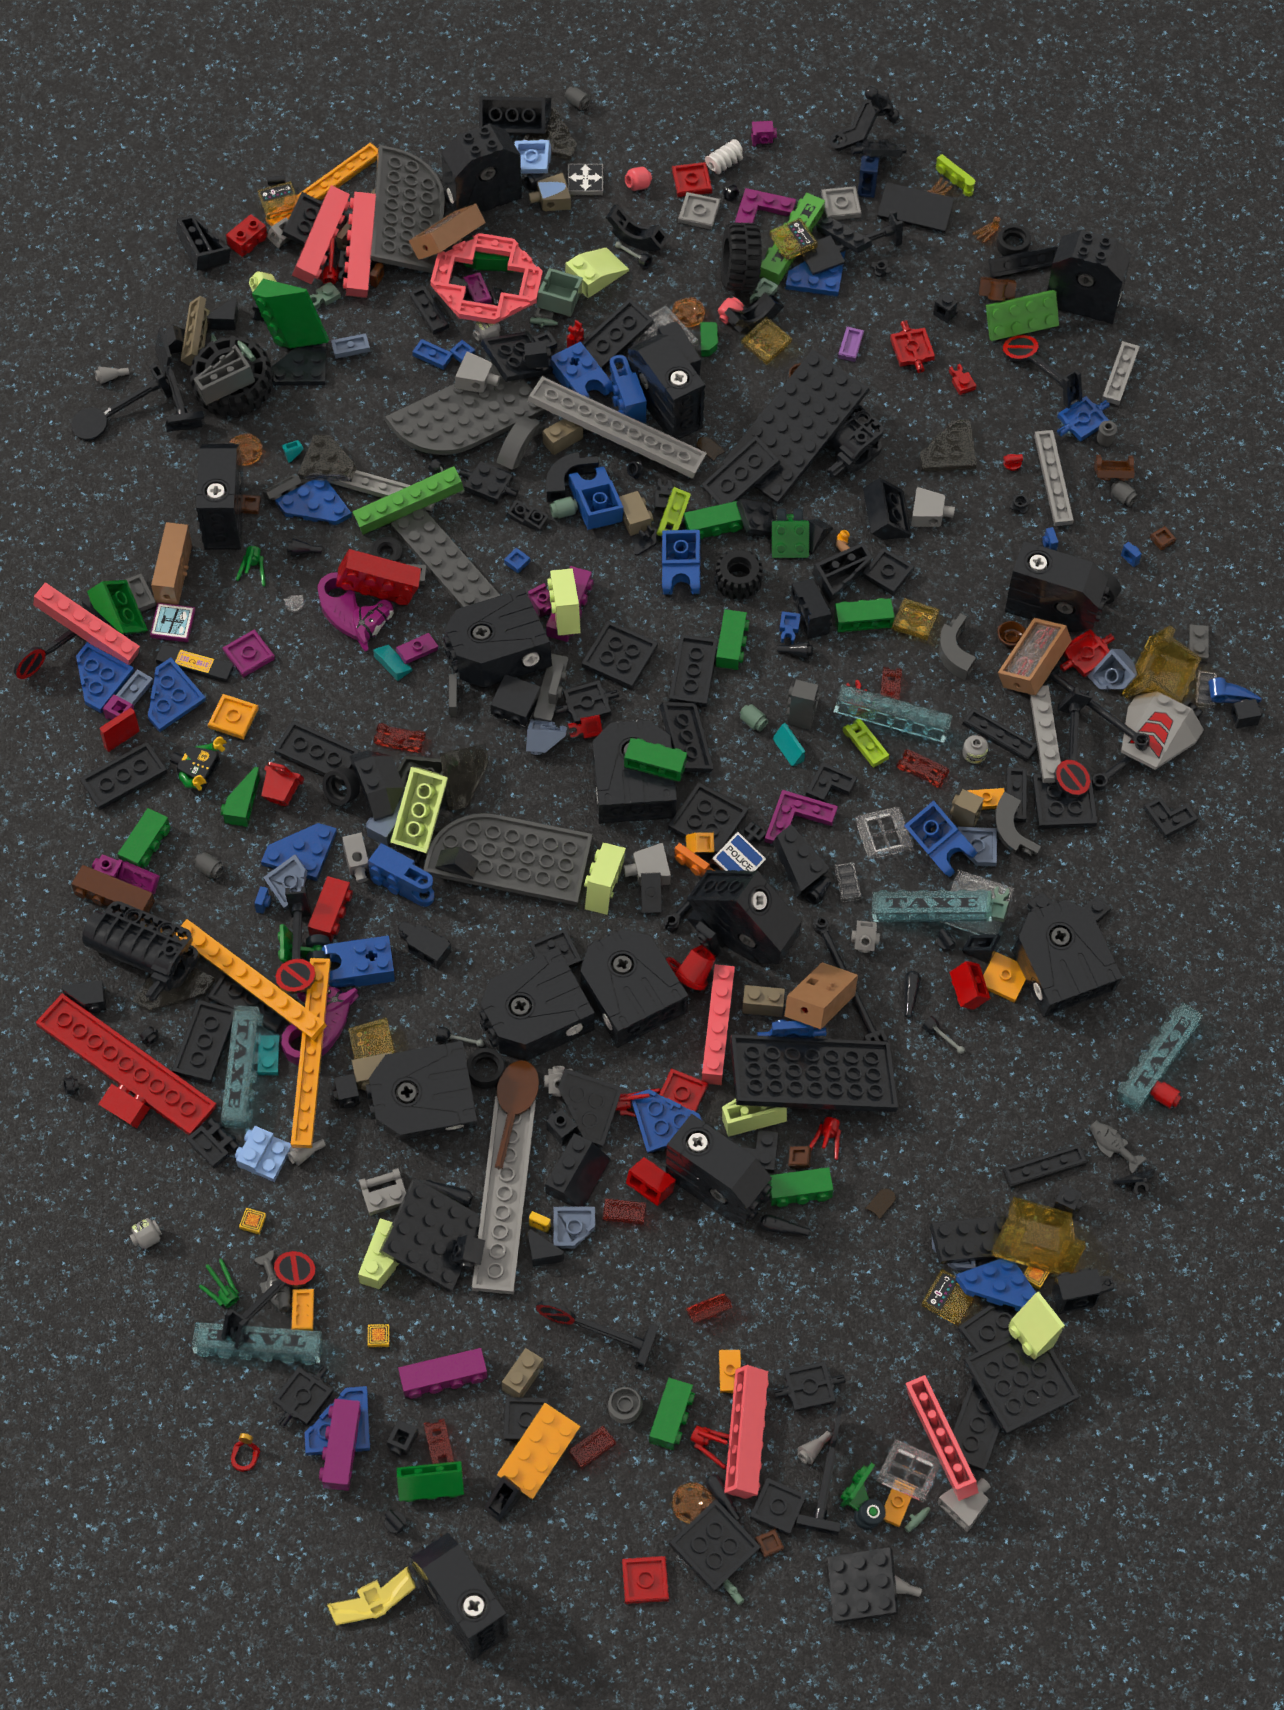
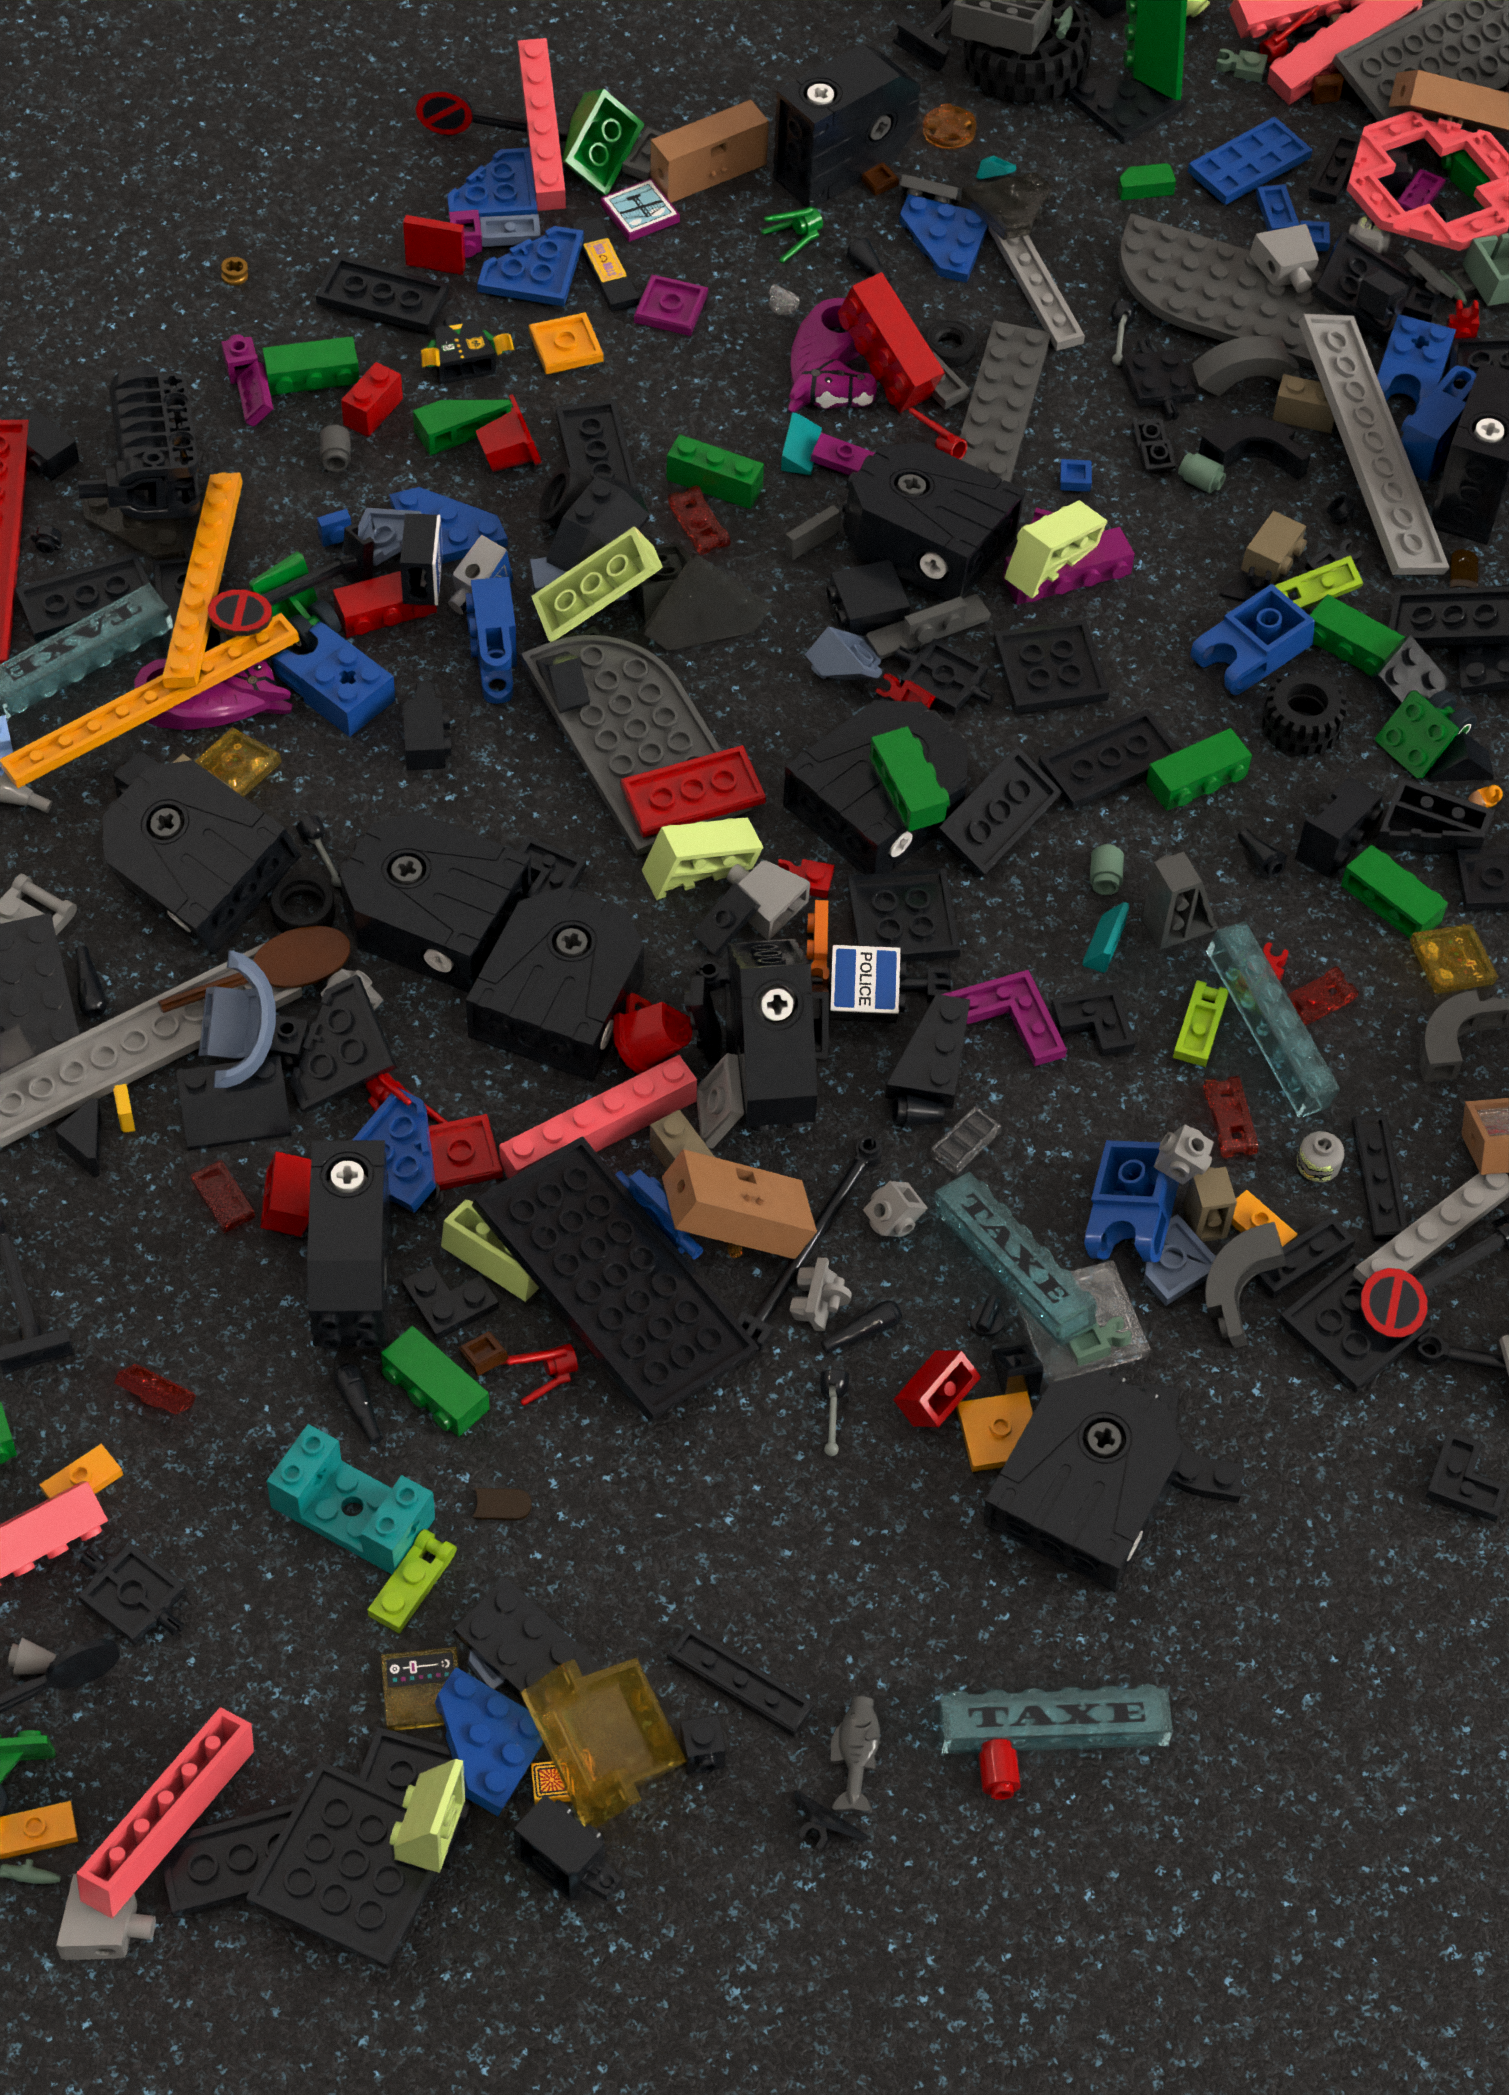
camera: 50 degrees right, 5 degrees down
(46, 834) = (234, 277): none -> pearl gold bush
(106, 889) = (211, 383): reddish brown brick -> none
(193, 827) = (372, 399): none -> red brick
(269, 1055) = (119, 675): teal plate -> none
(335, 873) = (421, 559): none -> black piece
(350, 346) = (1199, 128): sand blue plate -> none
(362, 393) = (1146, 182): none -> green piece
(378, 709) = (715, 471): none -> green brick
(390, 341) = (1249, 160): none -> blue plate
(408, 500) = (1037, 308): bright green brick -> none
(456, 599) = (946, 441): none -> red plant
(539, 325) = (1423, 268): none -> dark grey plate
(544, 1138) = (238, 1023): none -> sand blue piece
(566, 854) = (693, 790): none -> red tile
(572, 1225) = (150, 1149): sand blue plate -> none
(596, 499) = (1248, 494): blue brick -> none
(650, 839) = (817, 873): none -> red plate
(700, 843) = (851, 925): light orange panel -> none
(752, 964) = (719, 1100): none -> light grey tile
(789, 625) = (1285, 820): blue plate -> none
(858, 1255) = (316, 1486): none -> teal plate
(866, 835) = (1059, 1117): clear piece -> none
(886, 1006) = (825, 1294): none -> light grey hips
(893, 1266) = (411, 1581): none -> lime plate
(902, 1485) = (60, 1808): clear piece -> none
(947, 799) = (1184, 1154): none -> light grey brick

